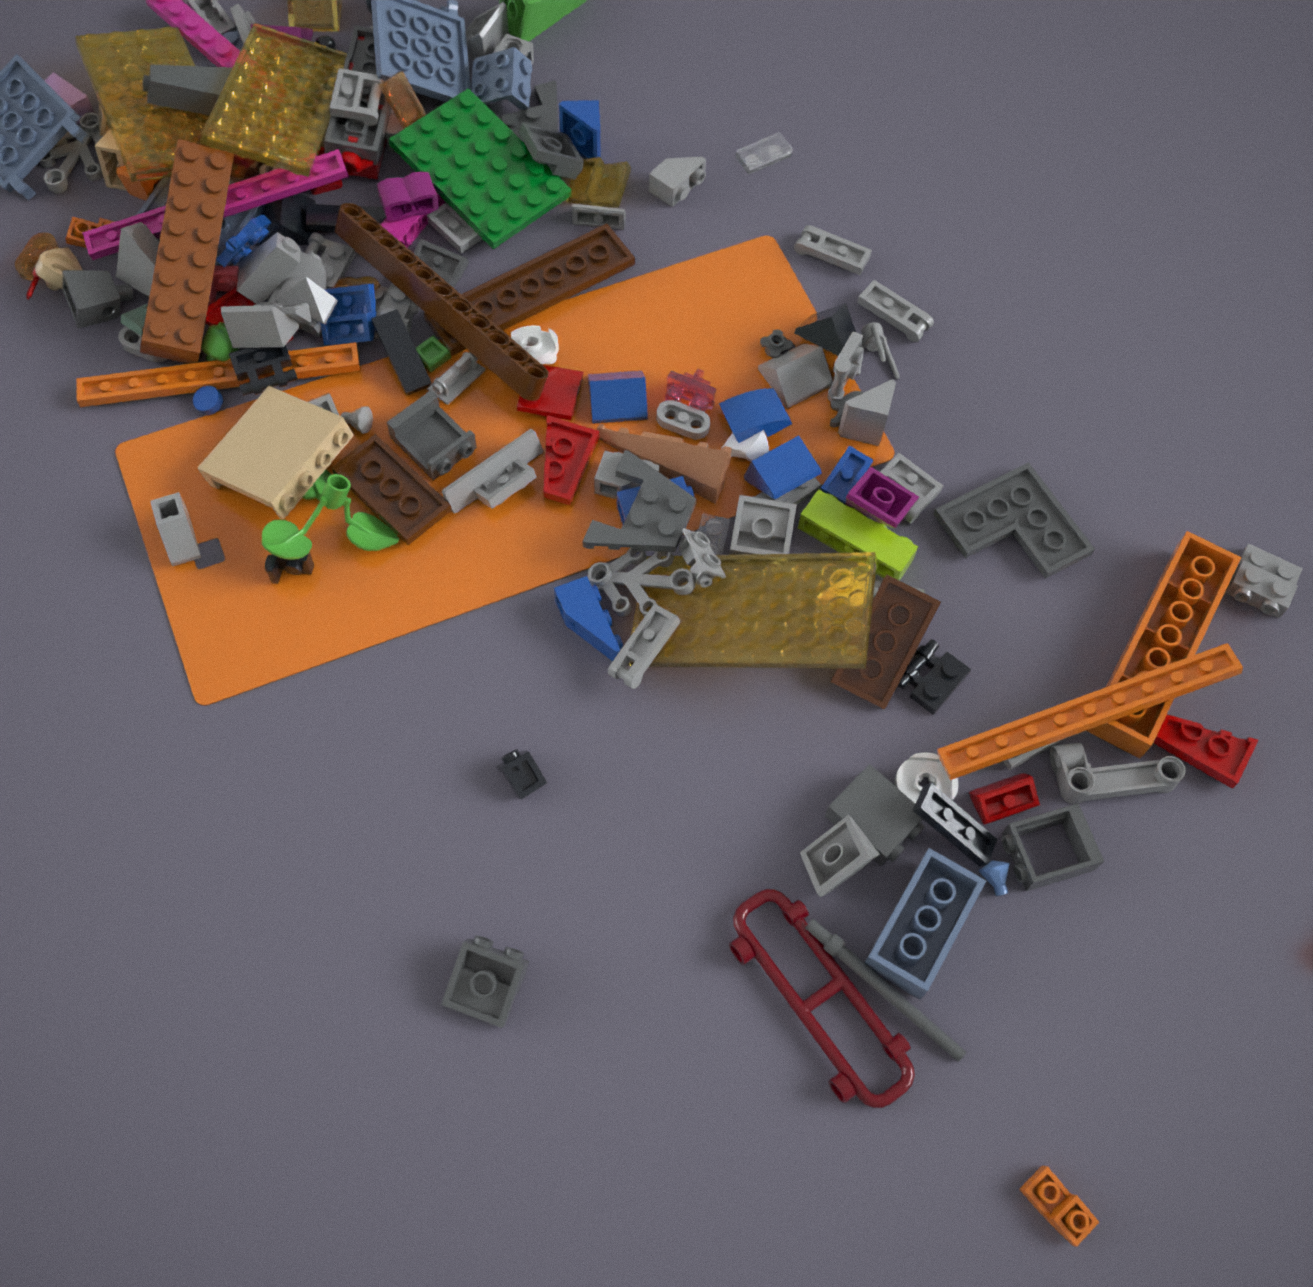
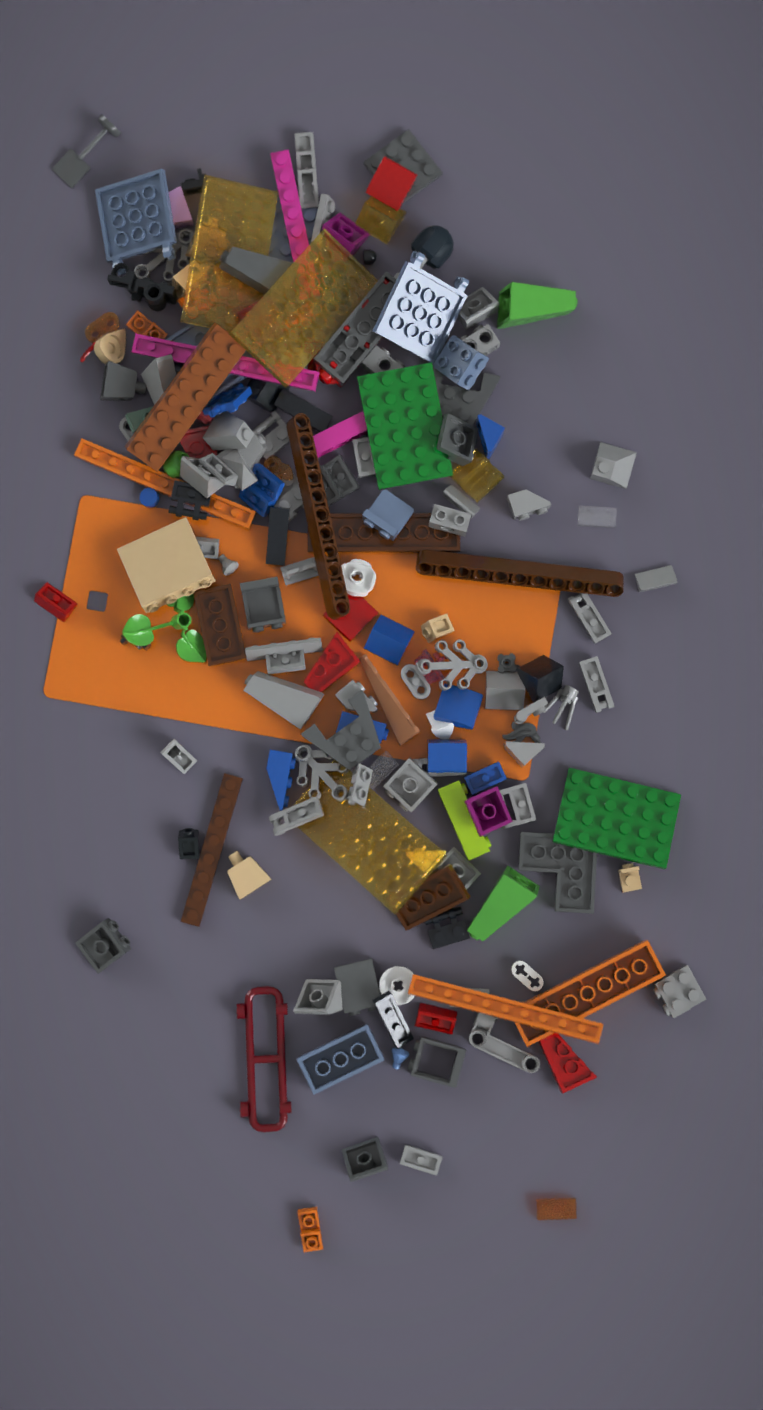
camera: 35 degrees right, 20 degrees up
(68, 184) = (156, 294): none -> black plate
(72, 69) = (193, 186): none -> black bracket
(148, 583) = (55, 602): none -> red slope
(175, 529) = (85, 581): light grey slope -> none
(348, 96) = (347, 333): light grey plate -> none
(402, 99) = (381, 353): clear orange plate -> none
(407, 196) = (344, 426): magenta brick -> none
(433, 353) = (297, 543): bright green tile -> none
(434, 669) = (178, 756): none -> light grey slope
(522, 261) = (387, 515): none -> sand blue bracket
(530, 520) = (283, 697): none -> light grey slope
(559, 768) = (211, 850): none -> reddish brown plate
(601, 226) = (449, 520): none -> light grey brick
(627, 764) = (246, 875): none -> tan torso
(665, 350) = (437, 628): none -> tan bracket
(710, 241) = (520, 573): none -> reddish brown beam
(740, 361) = (455, 664): none -> light grey plant
(742, 103) = (613, 465): none -> light grey slope
(835, 946) = (288, 1040): dark grey bar -> none
(876, 179) = (655, 578): none -> light grey slope
(978, 597) = (504, 901): none -> bright green slope
(1034, 432) = (616, 818): none -> green plate
(1058, 1046) = (364, 1159): none -> dark grey slope
(1074, 672) = (529, 971): none -> white beam
(1100, 489) = (629, 877): none -> tan bracket
(1131, 995) = (421, 1159): none -> light grey plate

